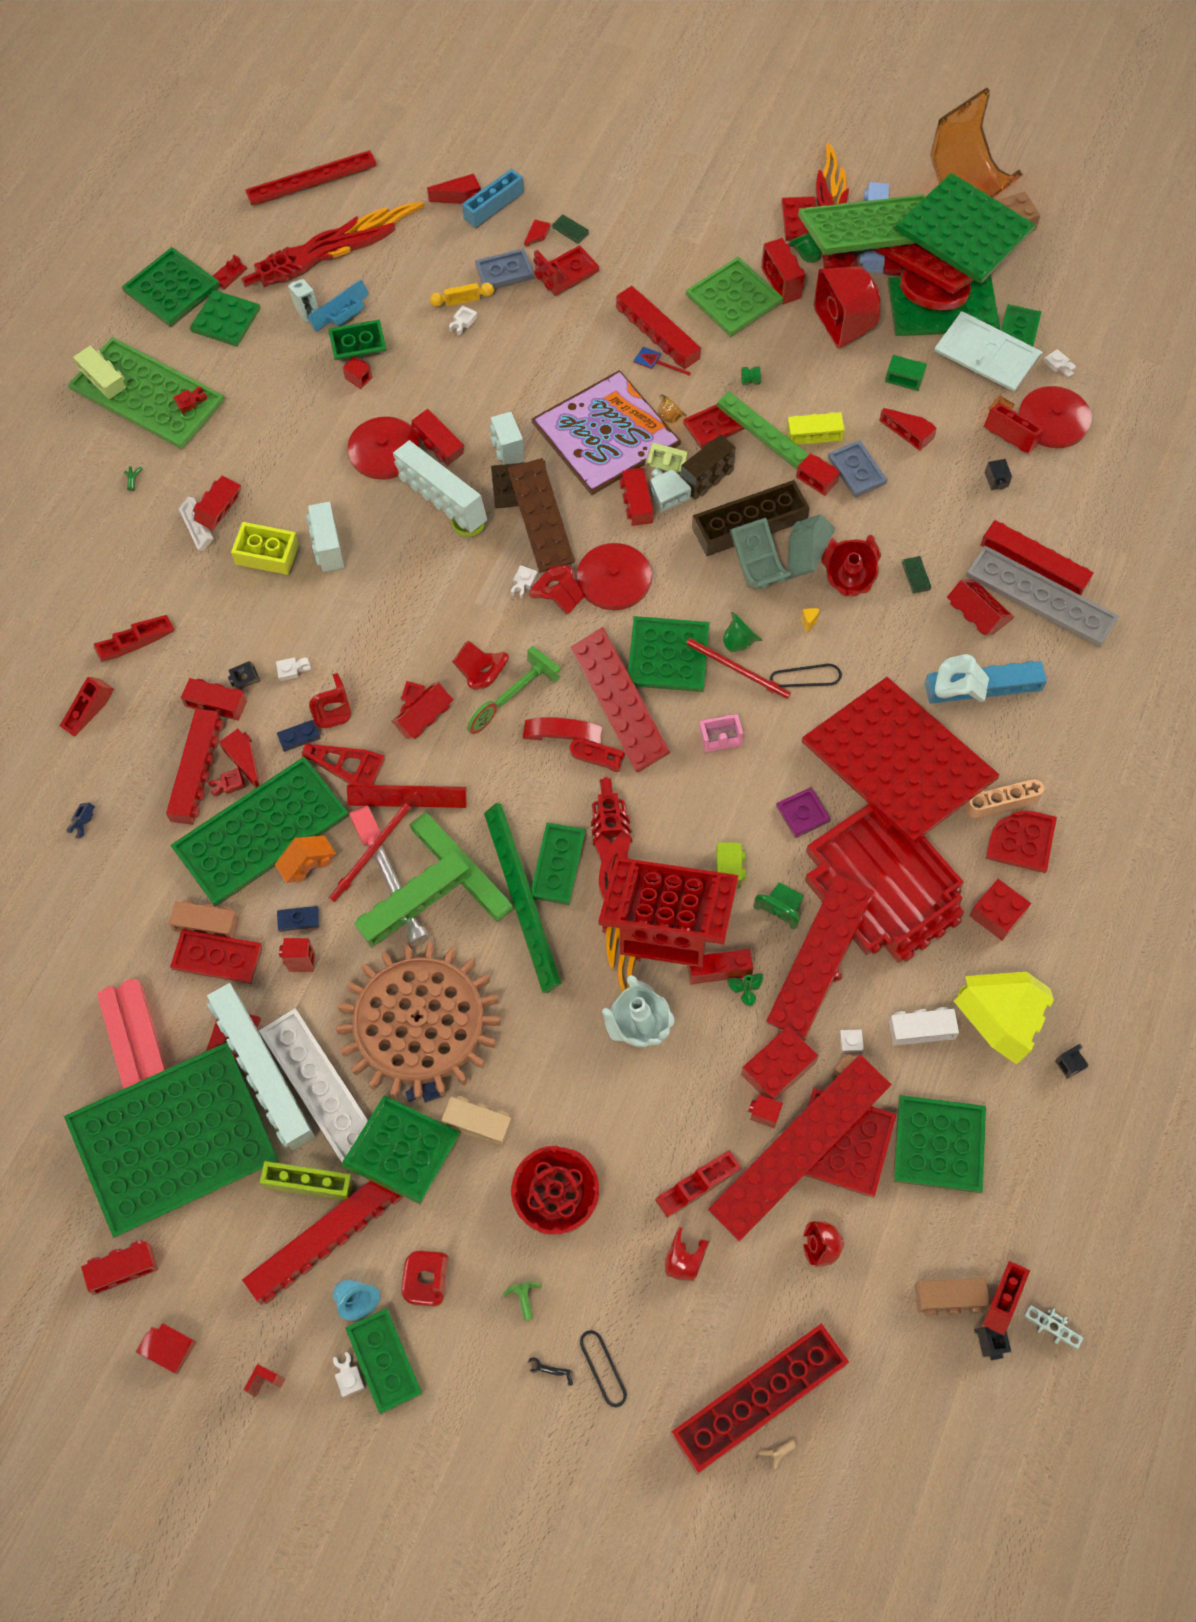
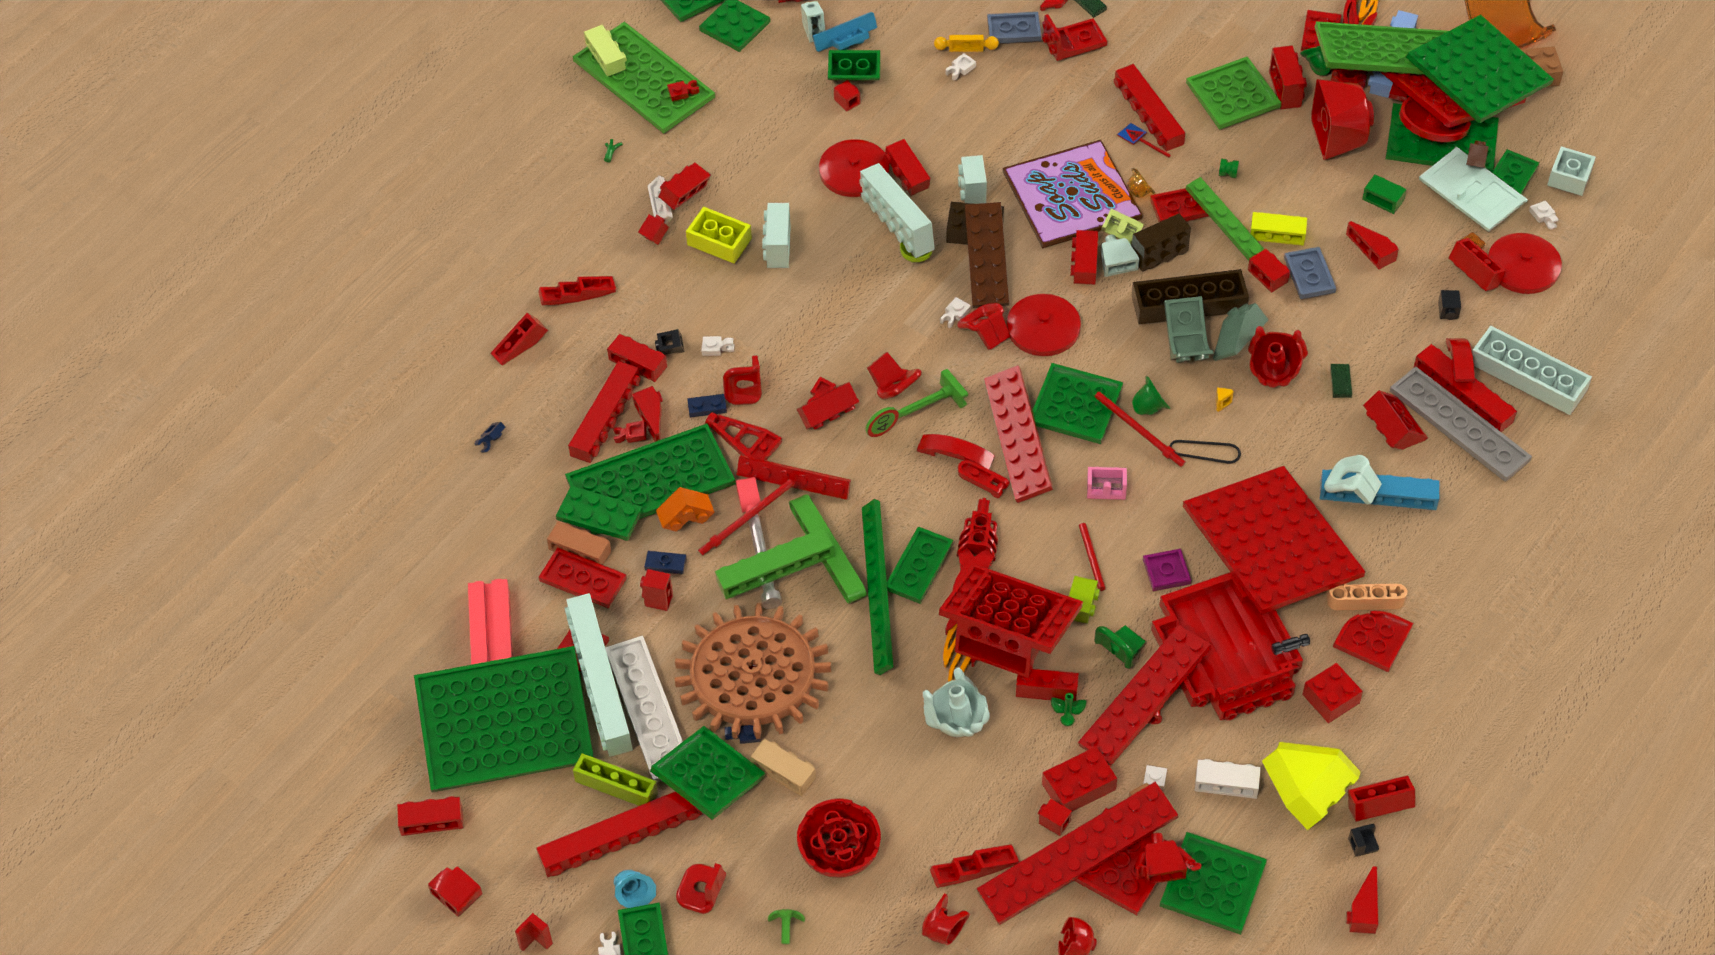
camera: 15 degrees right, 10 degrees down
(197, 555) = (653, 228): none -> red brick
(216, 881) = (599, 513): none -> green plate
(726, 814) = (1091, 556): none -> red bar
(889, 1136) = (1163, 861): none -> red torso
(949, 869) = (1290, 644): none -> black axle
(986, 315) = (1477, 154): none -> reddish brown brick
(1029, 529) = (1462, 359): none -> red slope
(1074, 314) = (1571, 171): none -> light aqua brick
(1079, 1013) = (1381, 798): none -> red brick
(1094, 527) = (1530, 370): none -> light aqua brick
(1094, 1137) = (1364, 908): none -> red slope

